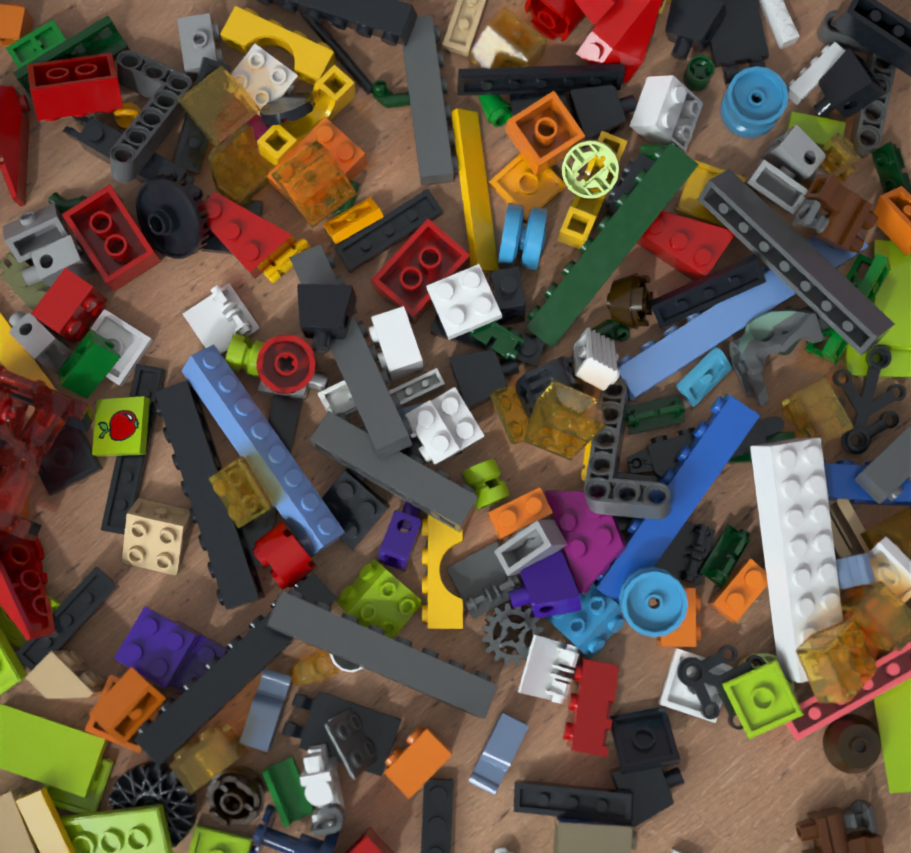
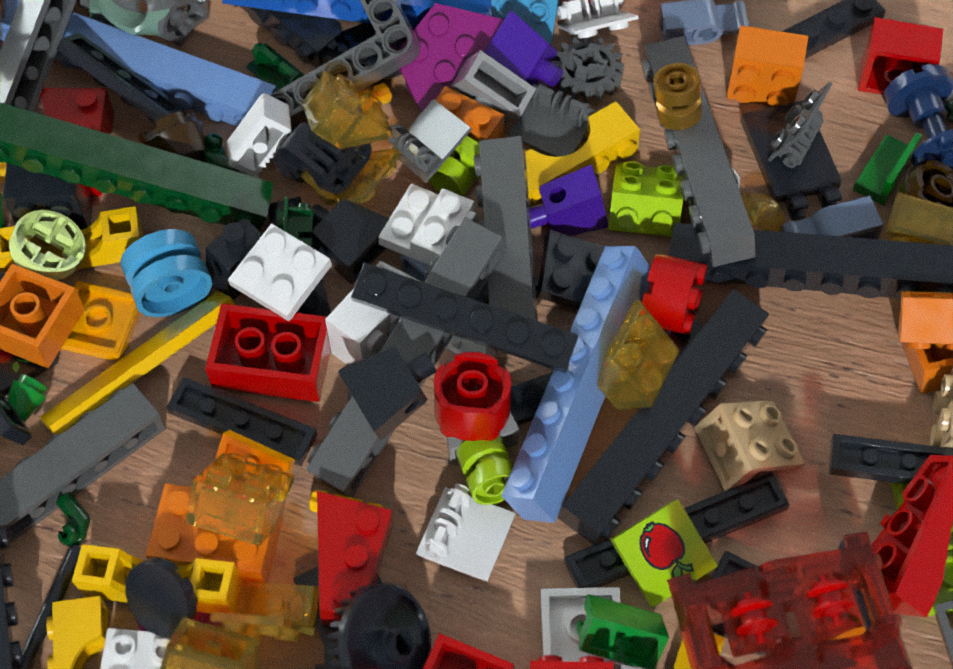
camera: 120 degrees left, 20 degrees down
(167, 650) = (854, 341): dark purple bracket -> none
(323, 790) = (859, 122): white hips -> none
(338, 390) = (464, 317): none -> black plate
(417, 658) = (678, 96): none -> pearl gold wheel
(510, 469) = (429, 139): none -> hinge
(704, 377) = (226, 54): medium azure plate -> none

